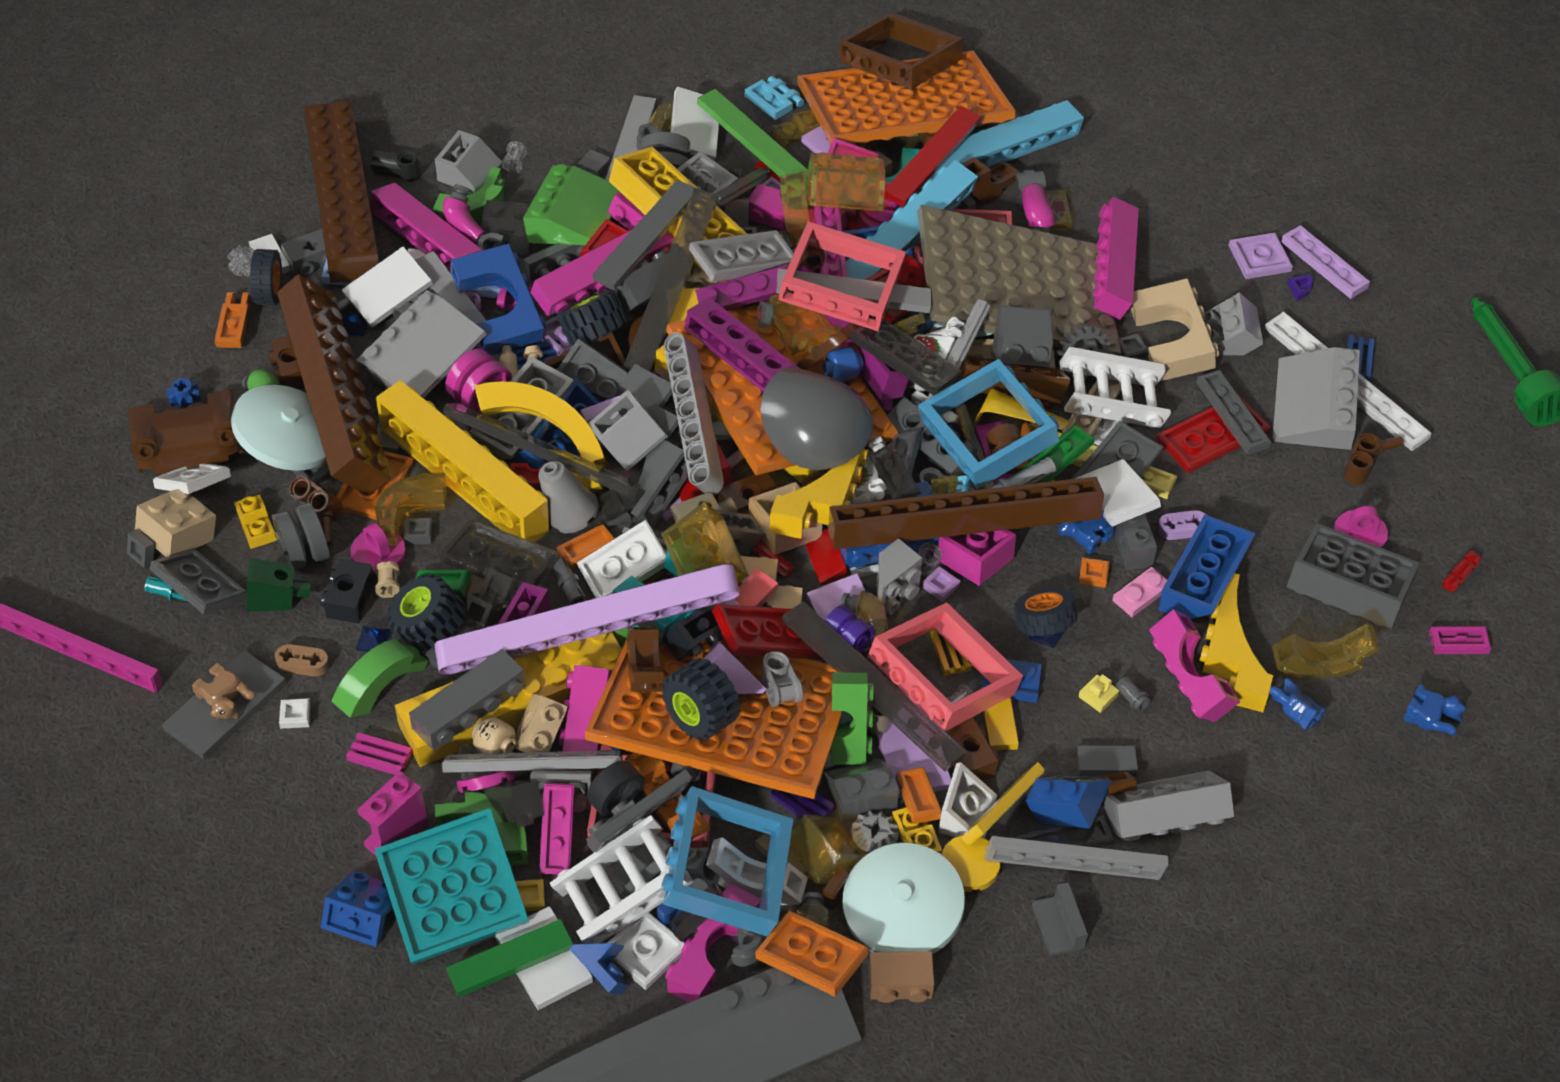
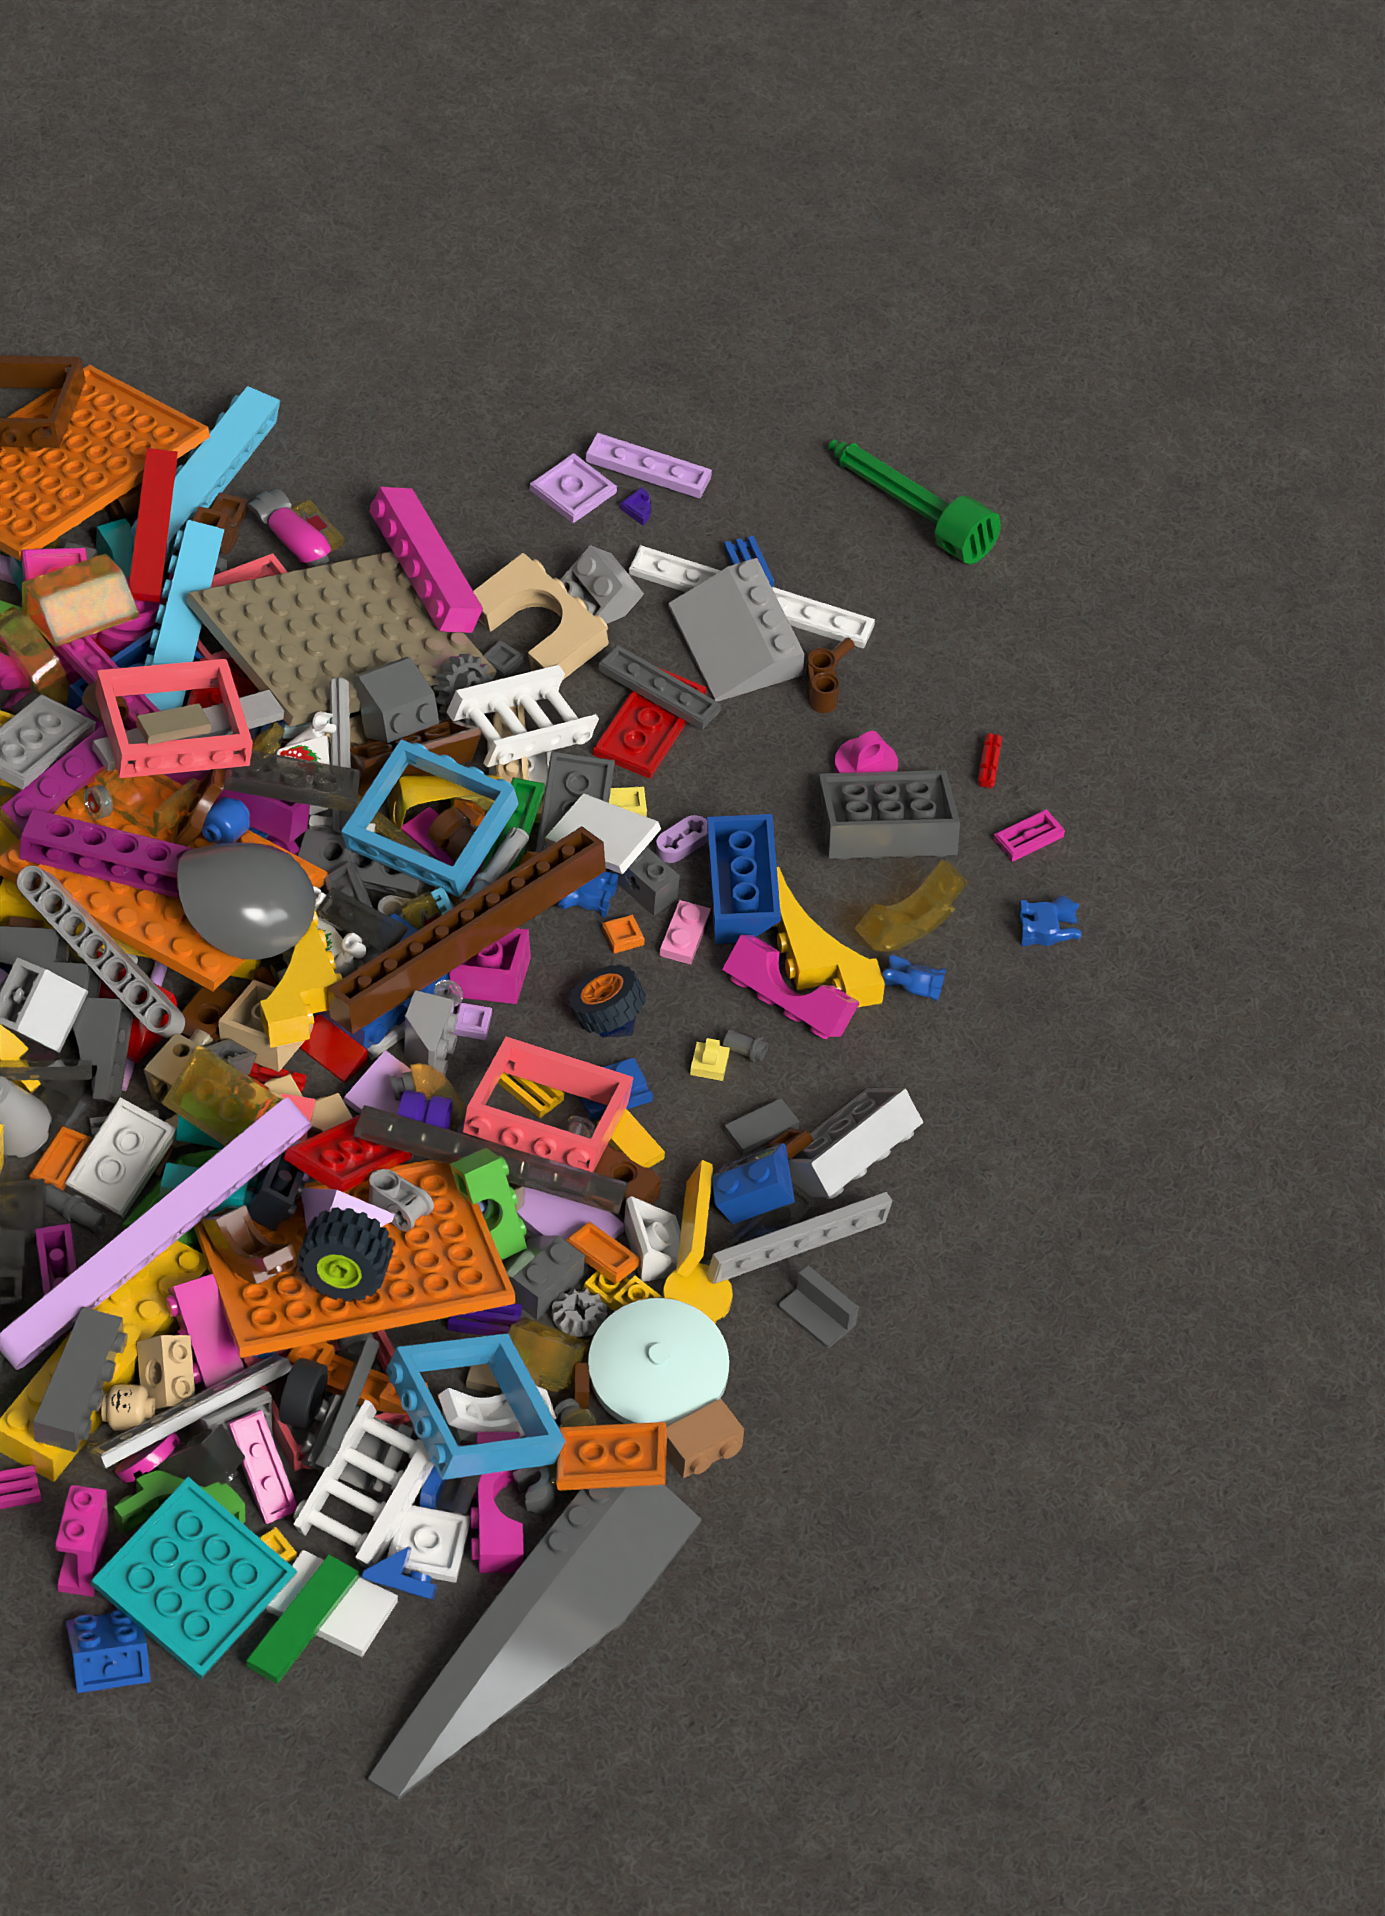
camera: 35 degrees left, 0 degrees up
(833, 276) = (173, 724): none -> dark tan tile

